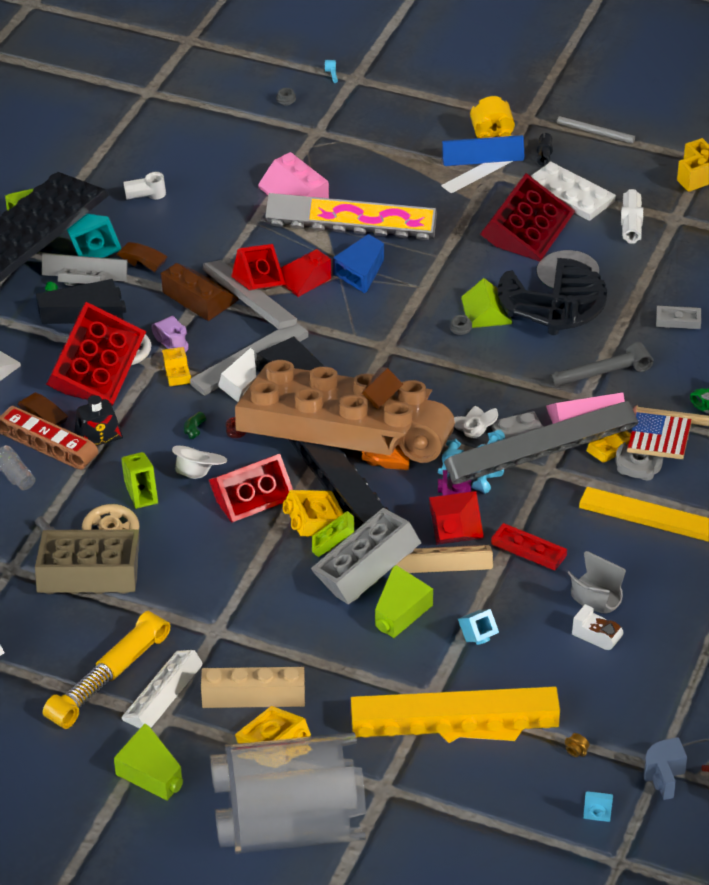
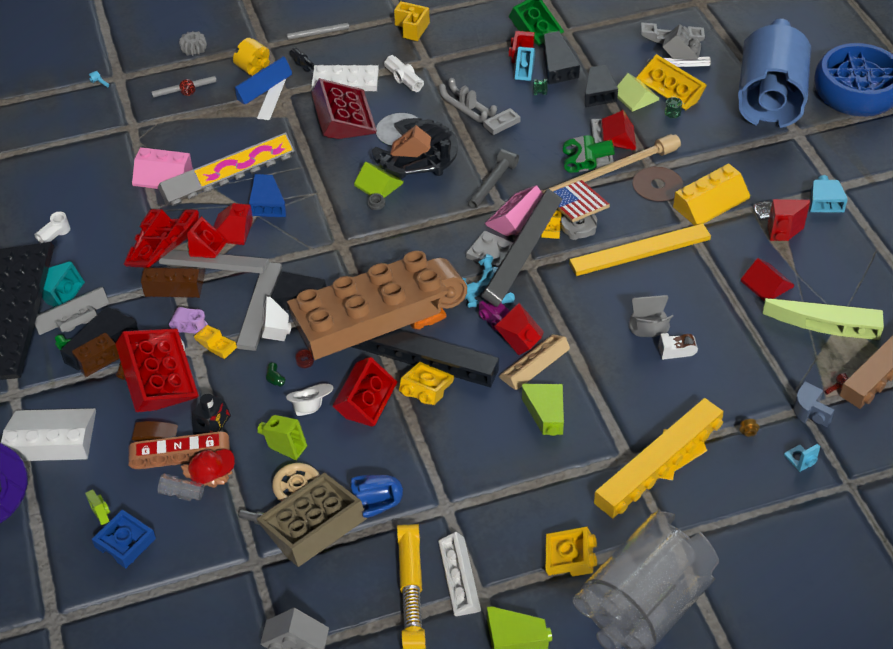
camera: 40 degrees left, 5 degrees up
(53, 466) = (210, 467): none -> red hair
(59, 314) = (96, 354): none -> reddish brown bracket
(141, 253) = (99, 278): reddish brown slope -> none
(161, 574) = (376, 493): none -> blue hair
(221, 244) = (159, 237): none -> red wedge
(253, 687) = (522, 530): tan brick -> none
(286, 96) = (86, 112): dark grey plate -> none
(333, 534) = (458, 389): lime plate -> none
(366, 555) = (497, 389): light grey slope -> none
(381, 387) = (399, 267): reddish brown slope -> none
(403, 118) = (173, 89): none -> light grey bar
(405, 115) = (183, 87): none -> clear red bush
(454, 79) = (192, 43): none -> light grey gear
(475, 421) = (458, 257): white plate -> none
(478, 626) = (613, 390): medium azure brick -> none
(529, 546) = (579, 319): red plate -> none
(545, 285) = (411, 143): none -> nougat slope
(663, 277) = (466, 101): none -> light grey piece

